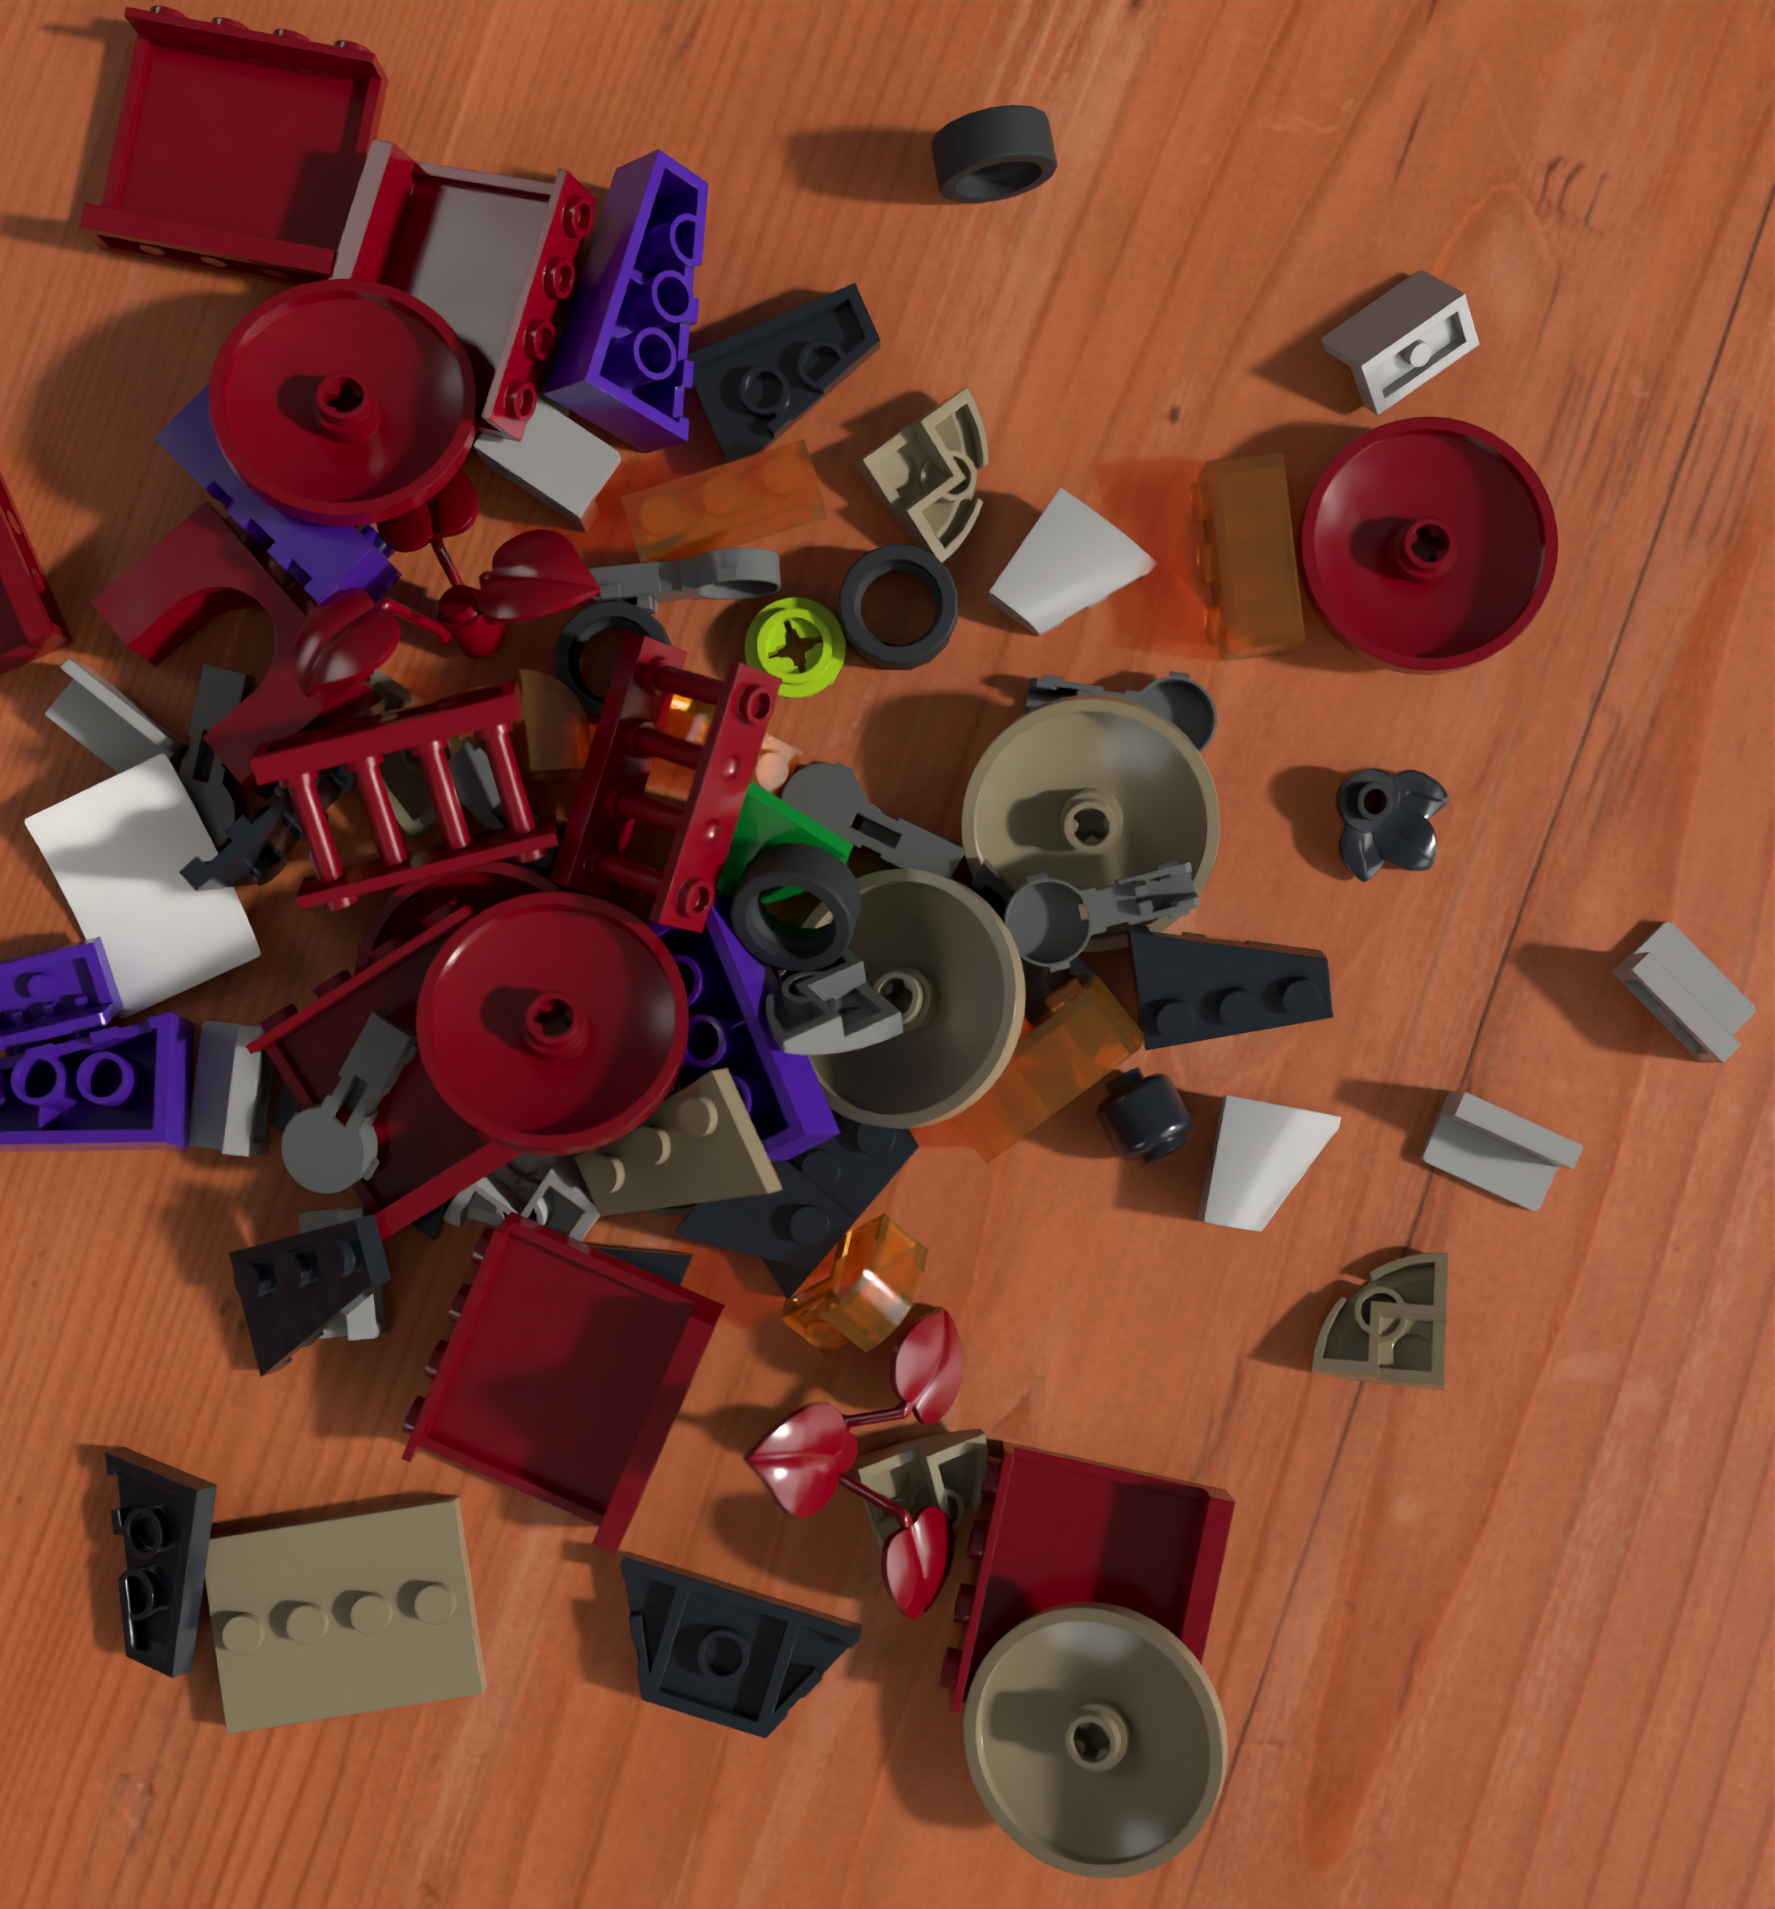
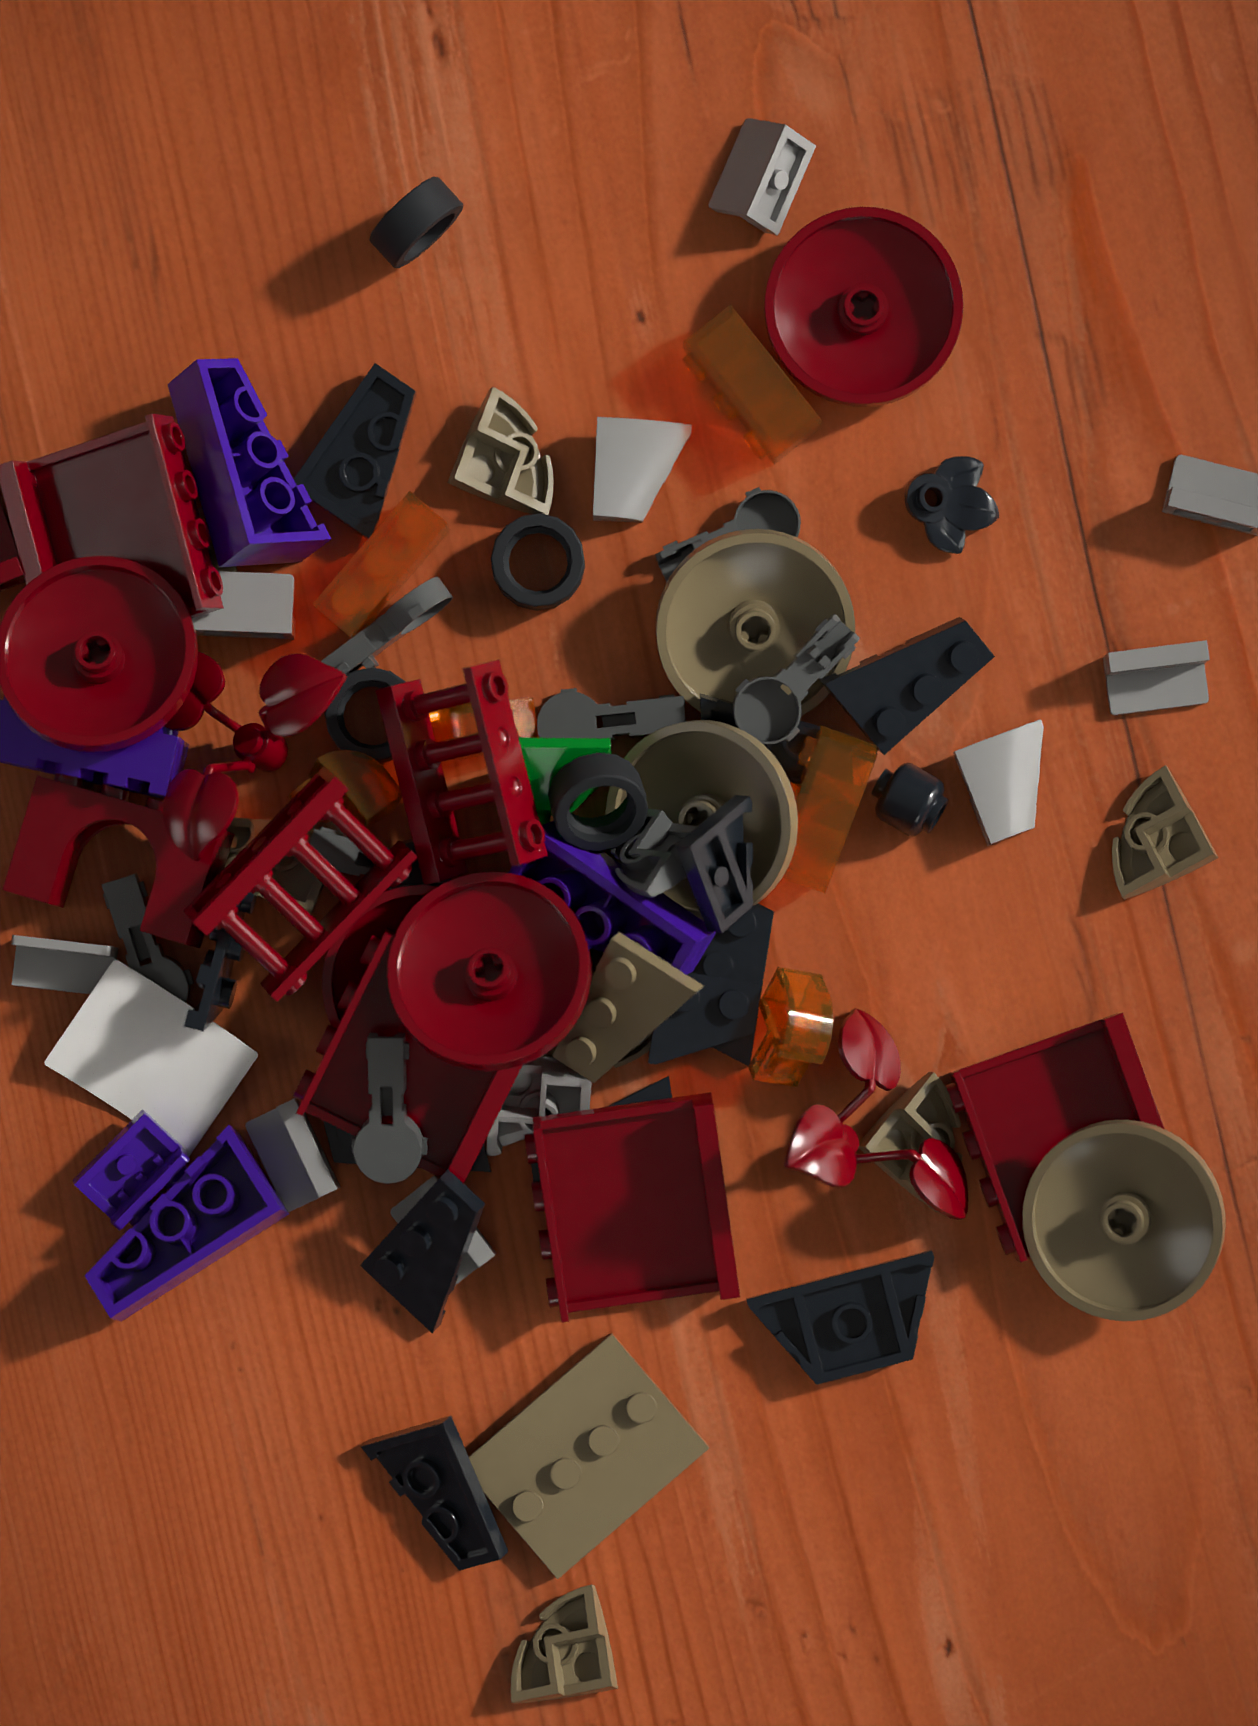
camera: 30 degrees left, 0 degrees up
(187, 1820) = (567, 1653): none -> dark tan brick
(810, 622) = (484, 607): lime gear -> none
(886, 1062) = (720, 865): none -> black wing

